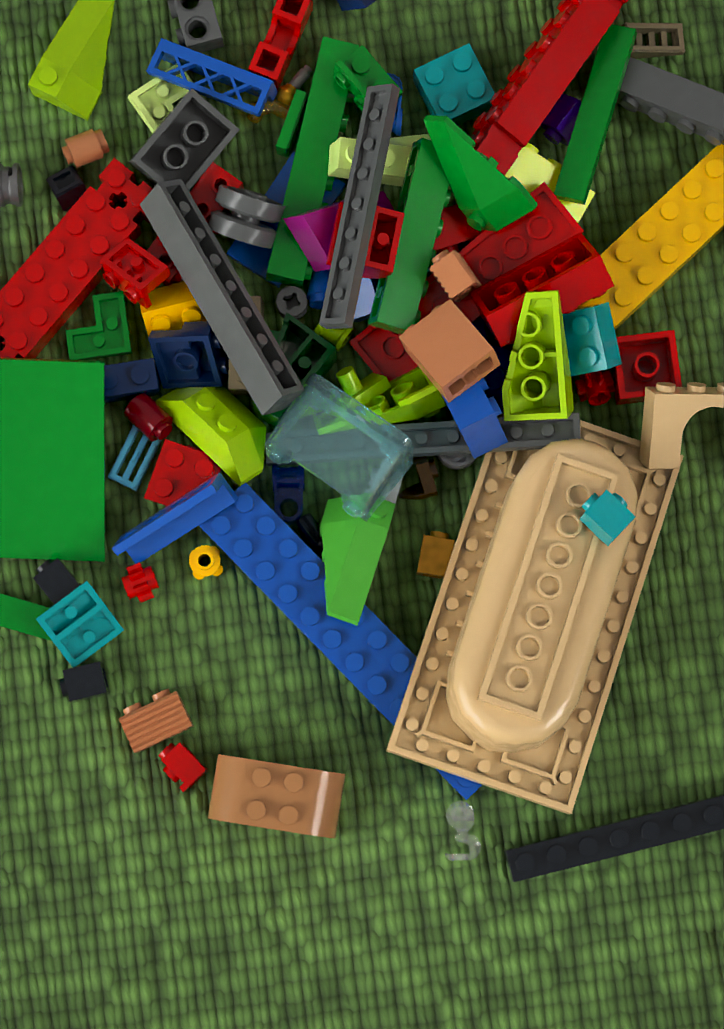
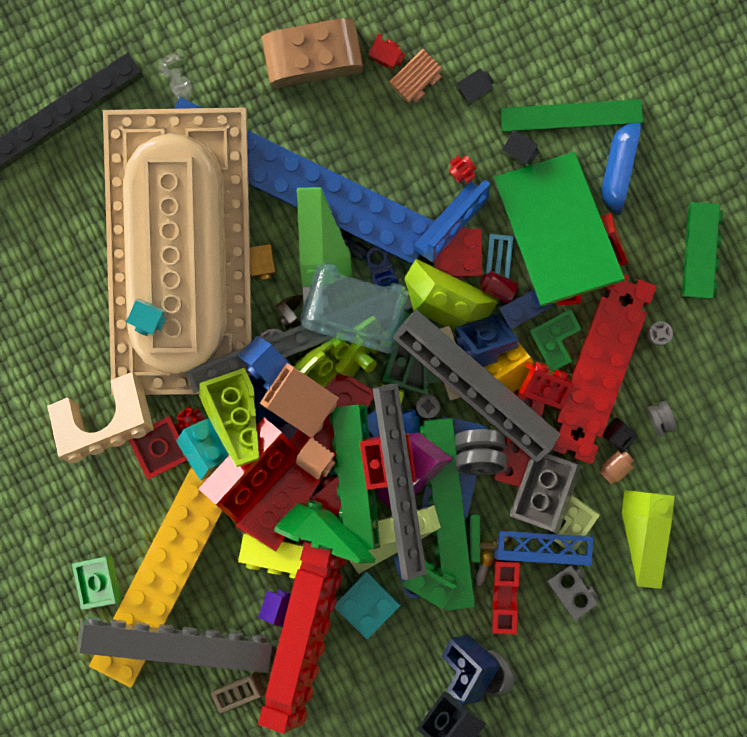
camera: 160 degrees right, 5 degrees up
(79, 624) = (493, 124): teal slope -> none
(213, 568) = (421, 208): yellow brick -> none
(595, 114) = (257, 616): green tile -> none

